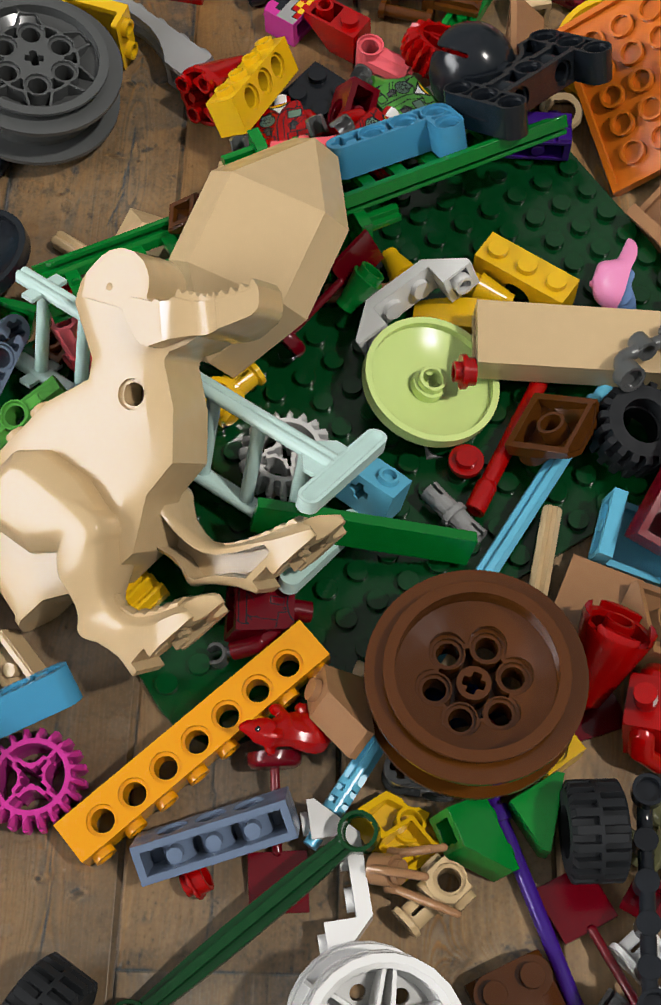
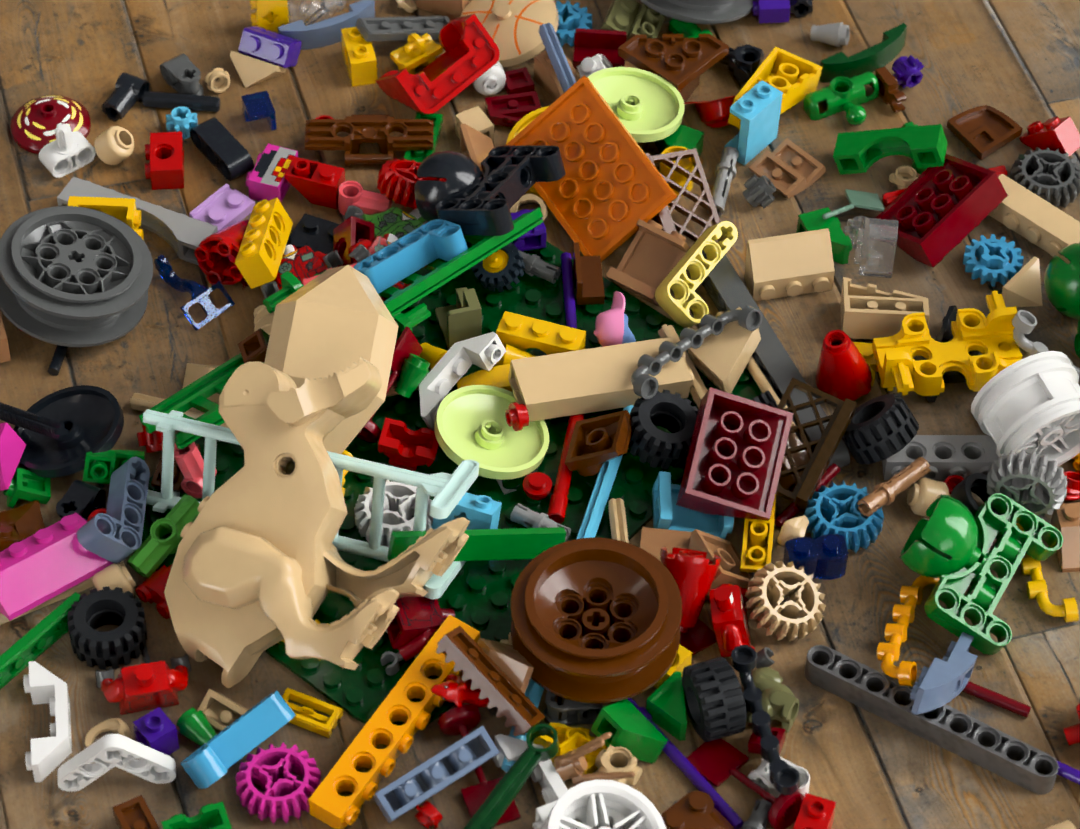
camera: 20 degrees left, 15 degrees down
(129, 709) = (307, 718): none -> yellow tile
(167, 128) = (198, 293): none -> clear blue piece
(230, 36) = (223, 208): none -> lavender plate
(316, 736) = (490, 680): none -> reddish brown gear
(328, 372) = (407, 447): none -> red cylinder
(441, 229) = (461, 319): none -> olive panel
(506, 177) = (500, 268): none -> black wheel
(545, 179) = (540, 268): none -> dark grey pin
(576, 223) = (568, 290): none -> dark purple bar
(604, 210) = (587, 278): none -> reddish brown panel

